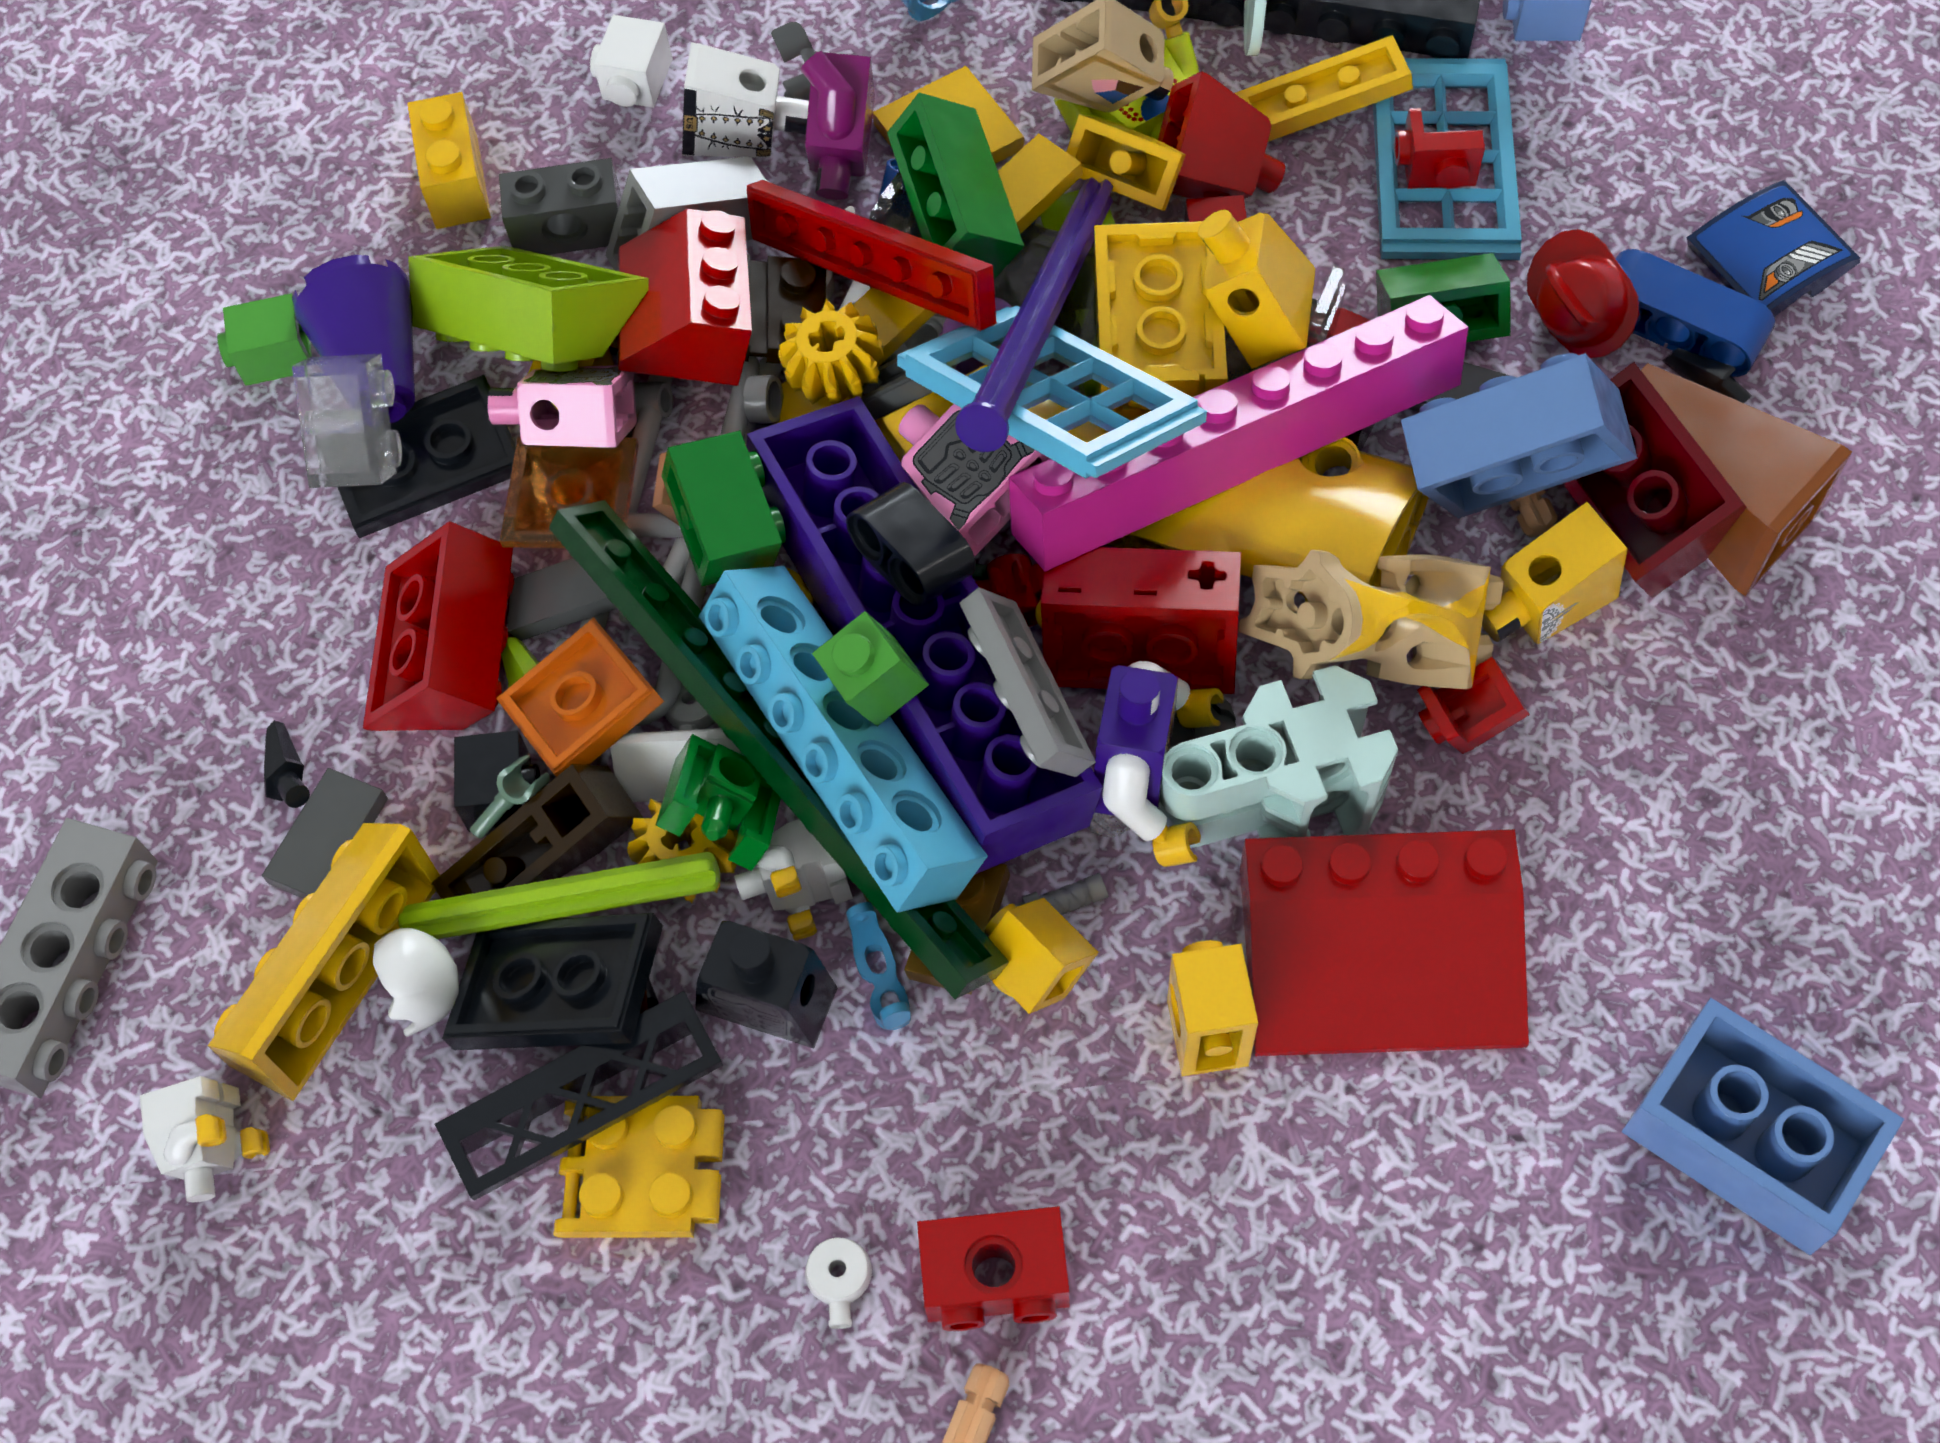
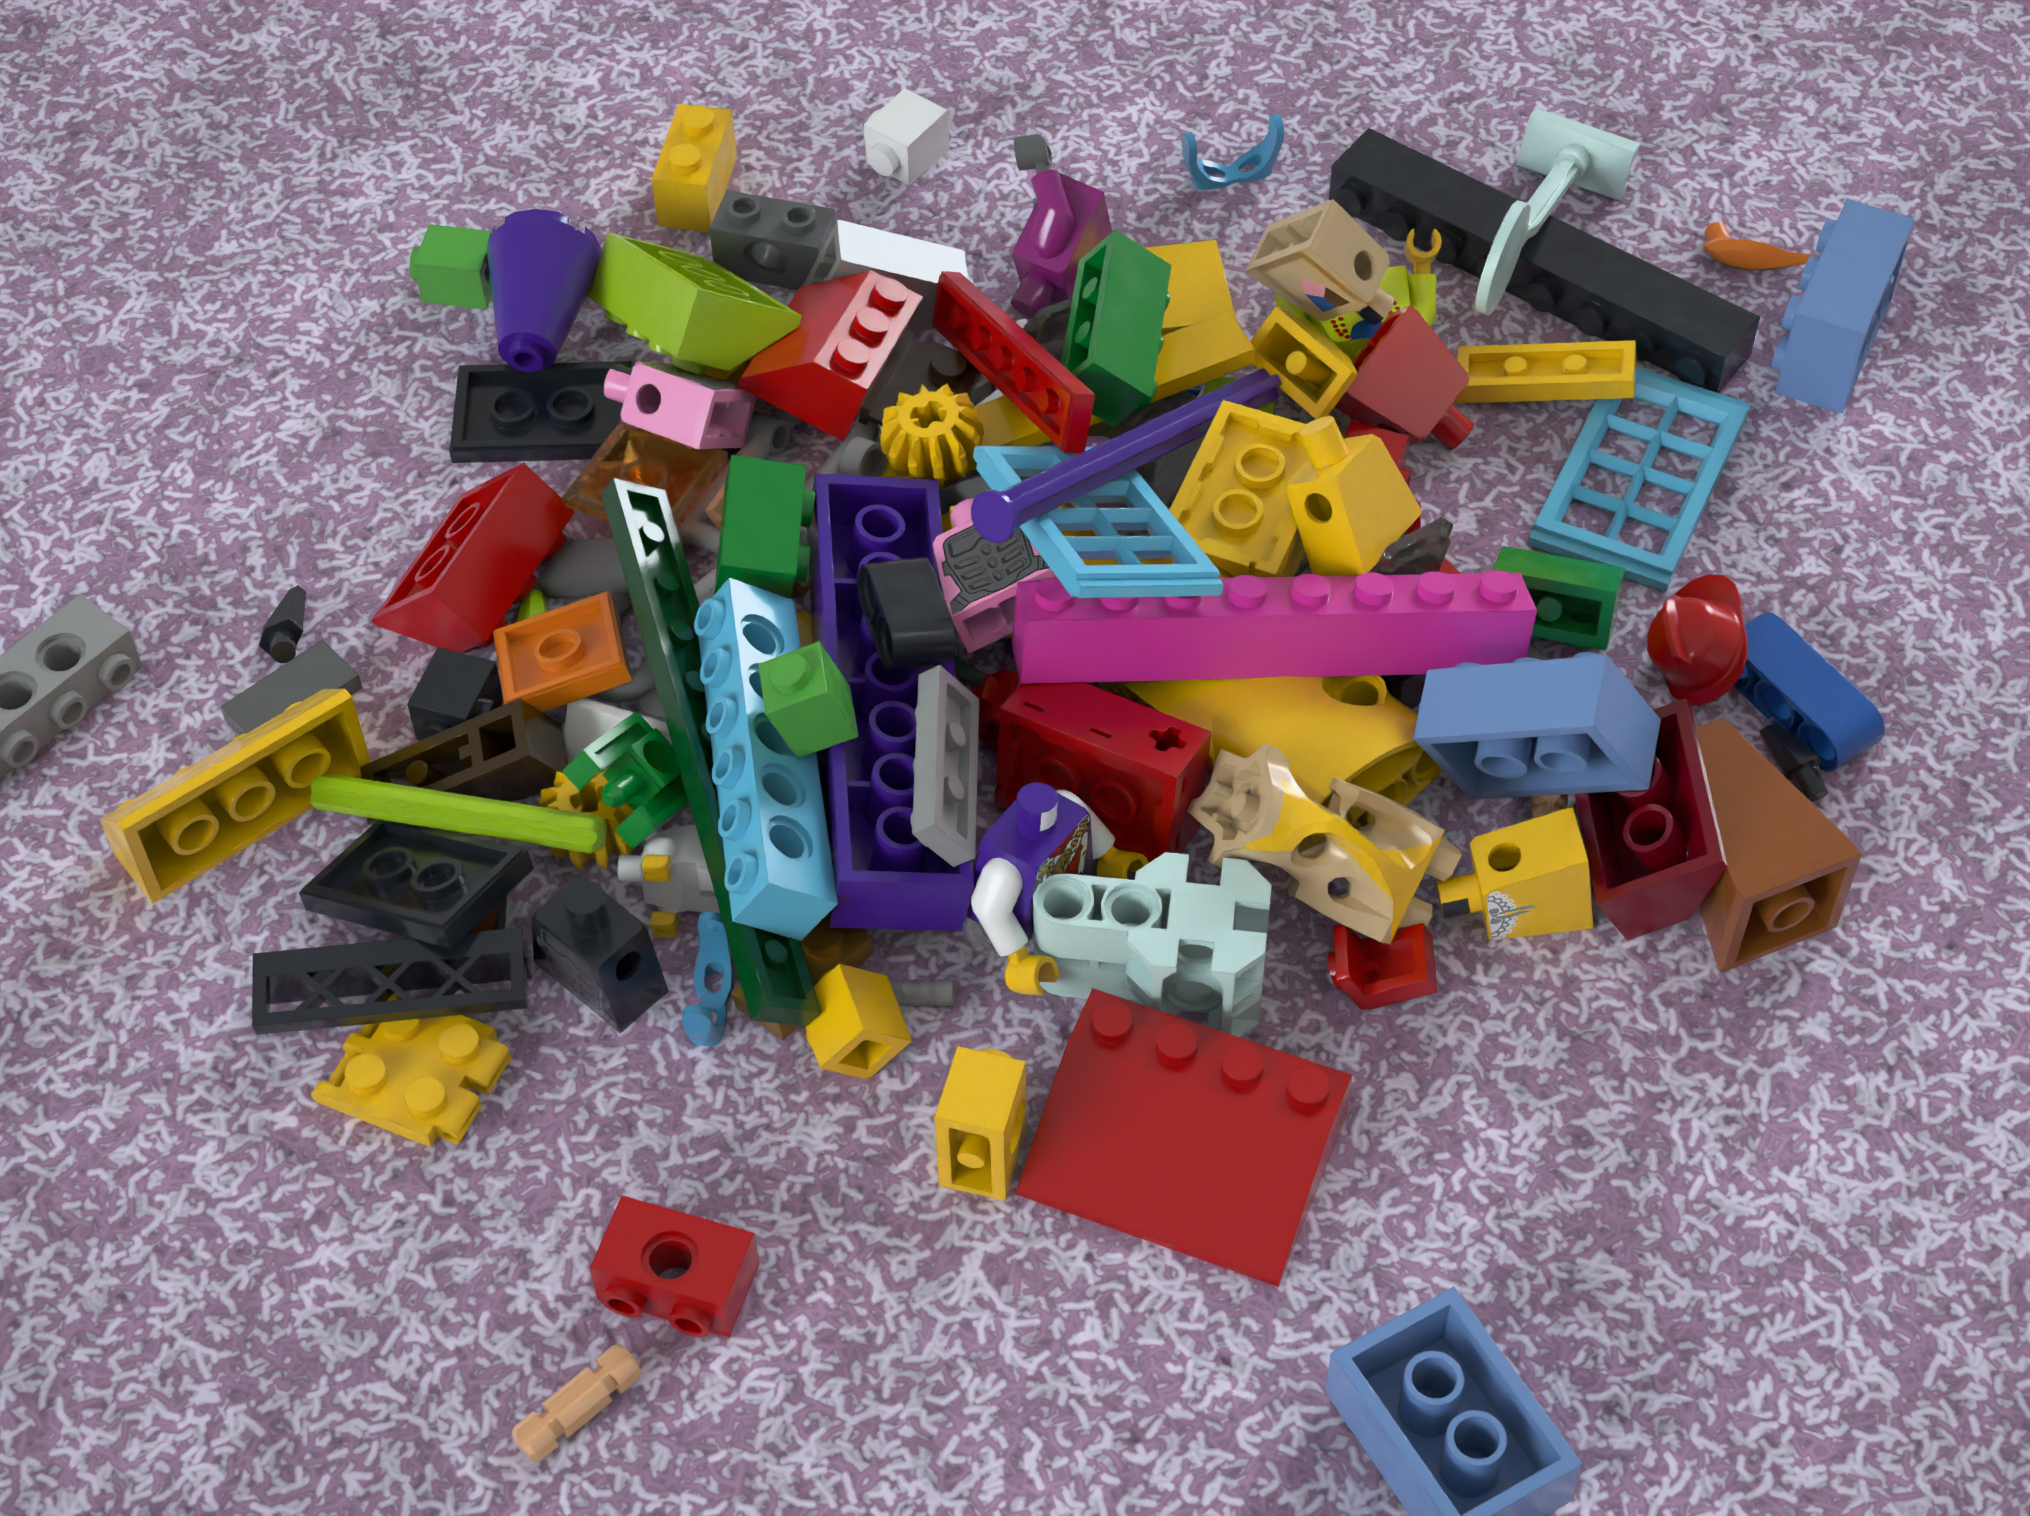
camera: 20 degrees right, 10 degrees down
(195, 1134) = (55, 889): white piece -> none
(346, 420) = (480, 350): clear brick -> none
(418, 976) = (302, 832): white hair -> none
(512, 791) = (461, 704): sand green hand -> none
(735, 105) = (970, 199): white torso -> none
(840, 1290) = (534, 1238): white piece -> none
(1438, 158) = (1621, 465): red bracket -> none
(1773, 248) = (1926, 666): slope -> none

